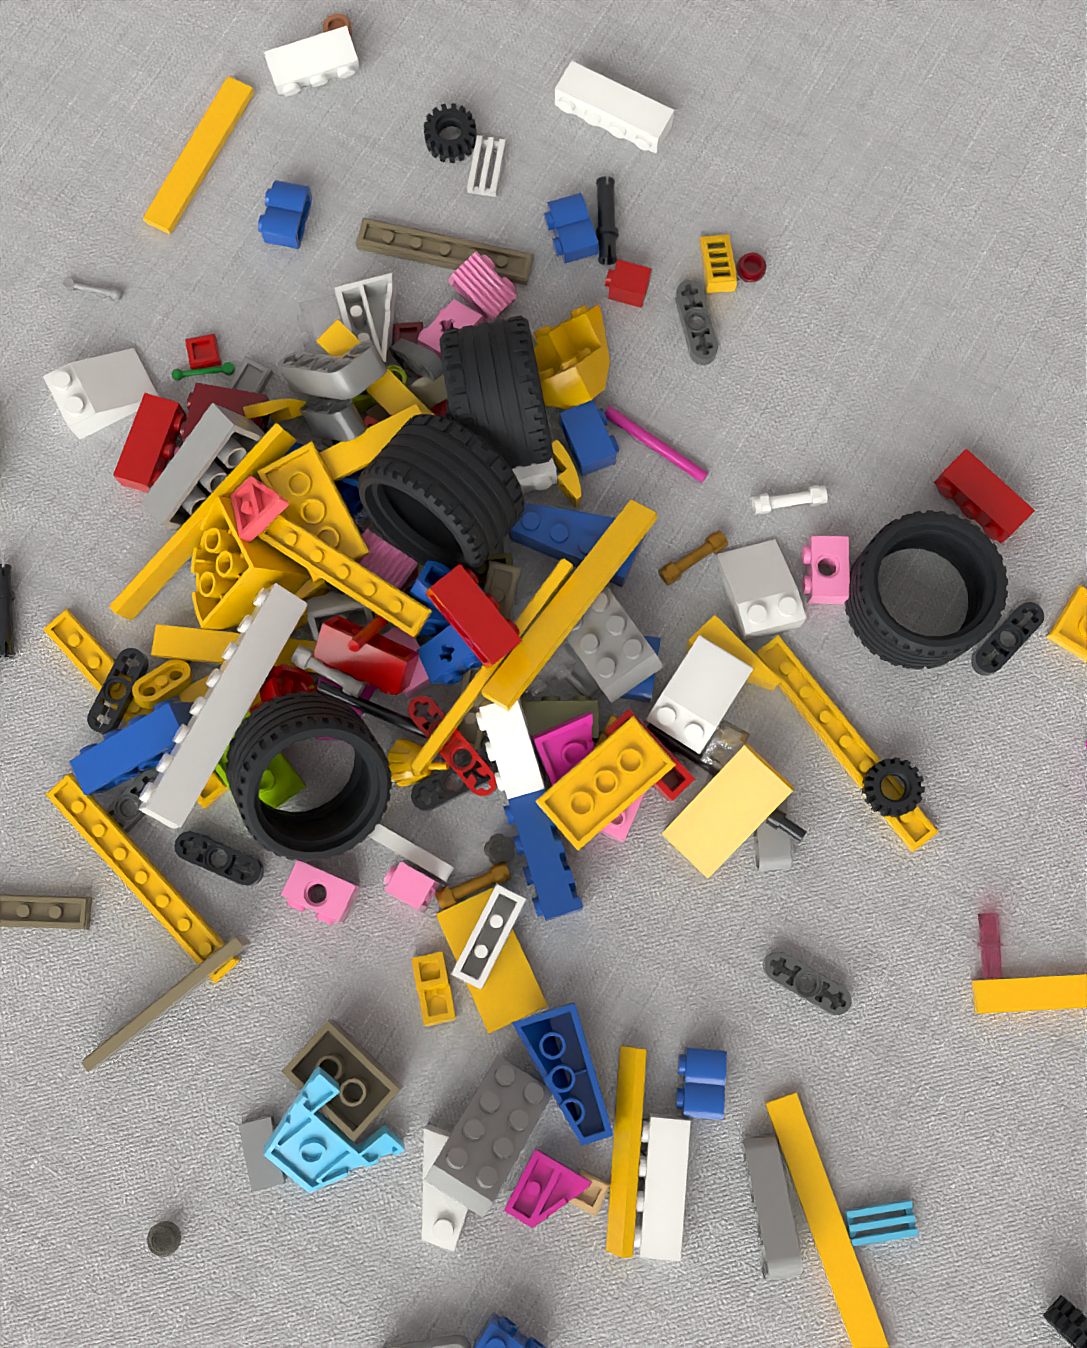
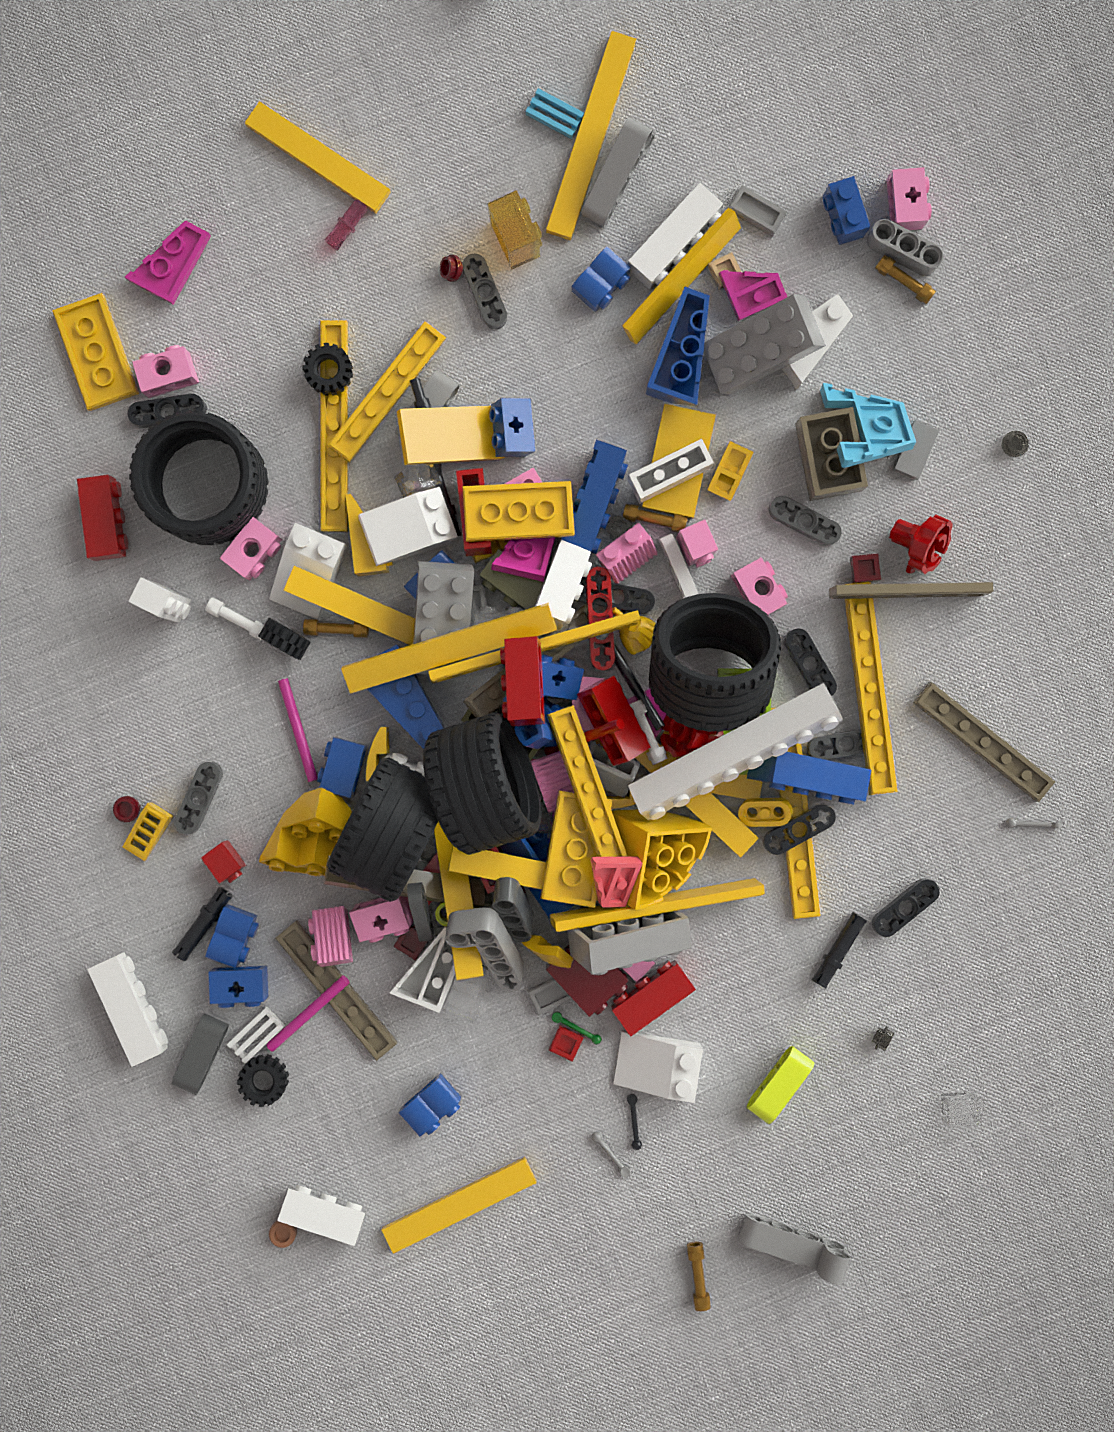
camera: 145 degrees left, 10 degrees up
(106, 346) = (632, 1100): none -> black hinge
(188, 1060) = (923, 542): none -> red piece
(229, 992) = (865, 568): none -> dark red plate
(298, 990) = (819, 535): none -> dark grey beam
(369, 1328) = (923, 292): none -> pearl gold bar
(454, 213) = (307, 1013): none -> dark pink bar
(474, 828) = (627, 553): none -> bright pink brick
(522, 115) = (200, 1054): none -> dark grey beam
(528, 194) = (251, 977): none -> blue brick
(602, 1281) = (757, 211): none -> light grey tile
(678, 882) = (512, 427): none -> brick
(696, 583) = (350, 605): none -> yellow tile
(731, 509) = (284, 639): none -> black tyre
(821, 812) = (386, 392): none -> yellow tile
(821, 1060) = (514, 229): none -> clear yellow piece
(857, 980) = (451, 268): none -> dark red plate
(869, 455) = (160, 600): none -> white brick
(1024, 681) = (179, 376): none -> bright pink brick

